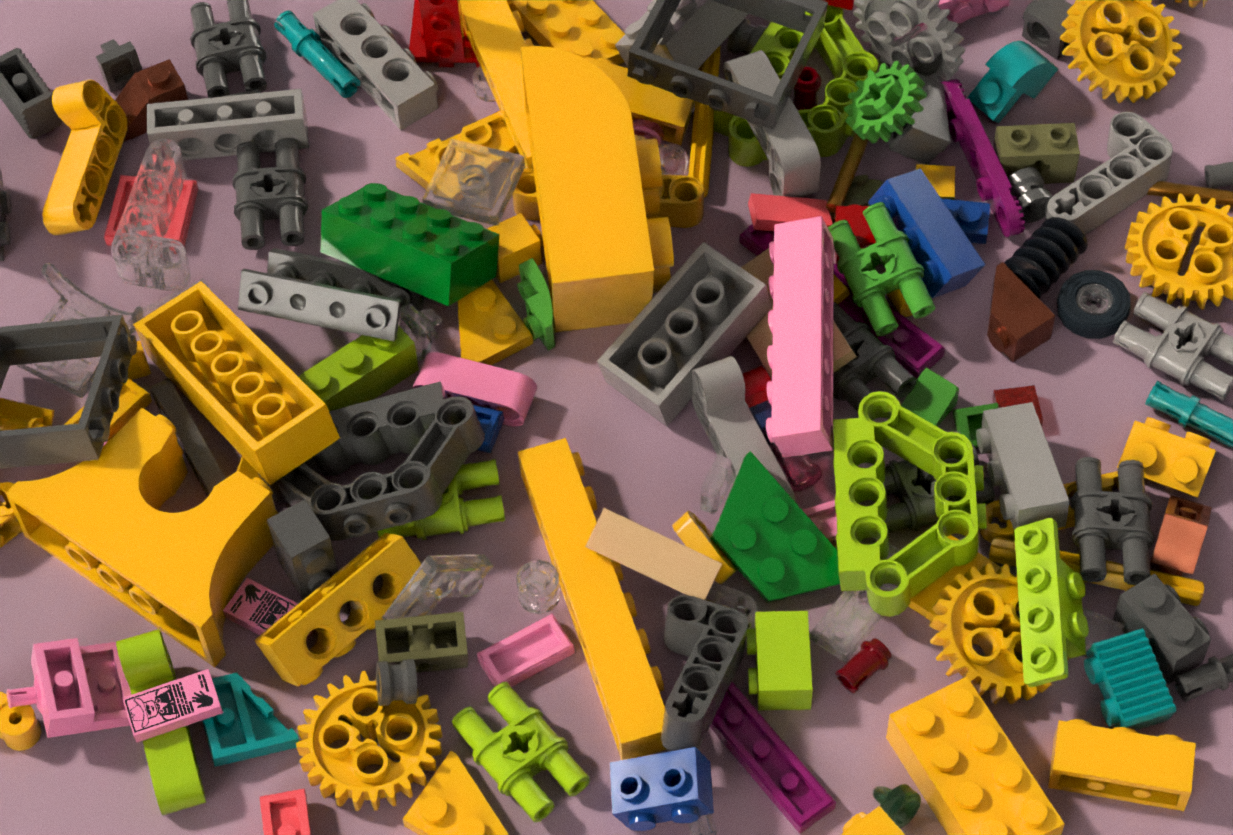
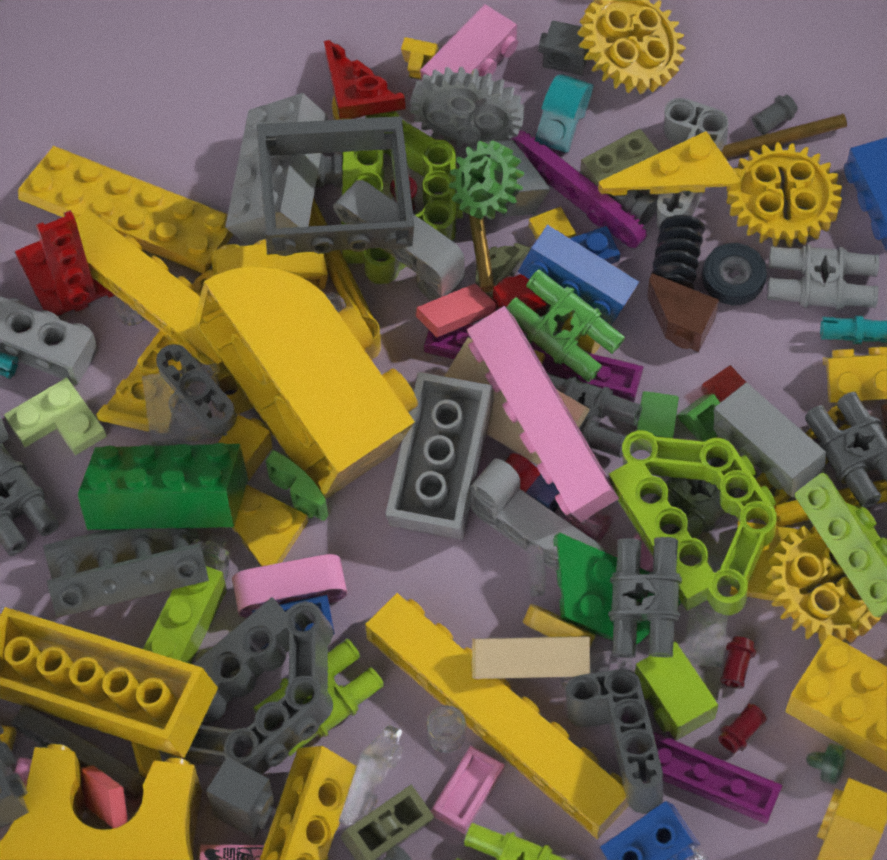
camera: 30 degrees left, 5 degrees up
(180, 484) = (104, 796): none -> coral tile
(362, 140) = (59, 409): none -> yellowish green plate
(485, 182) = (193, 373): none -> dark grey beam
(797, 550) = (632, 586): none -> dark grey pin
(828, 729) = (742, 728): none -> dark red pin
(1096, 177) = (681, 168): none -> yellow wing

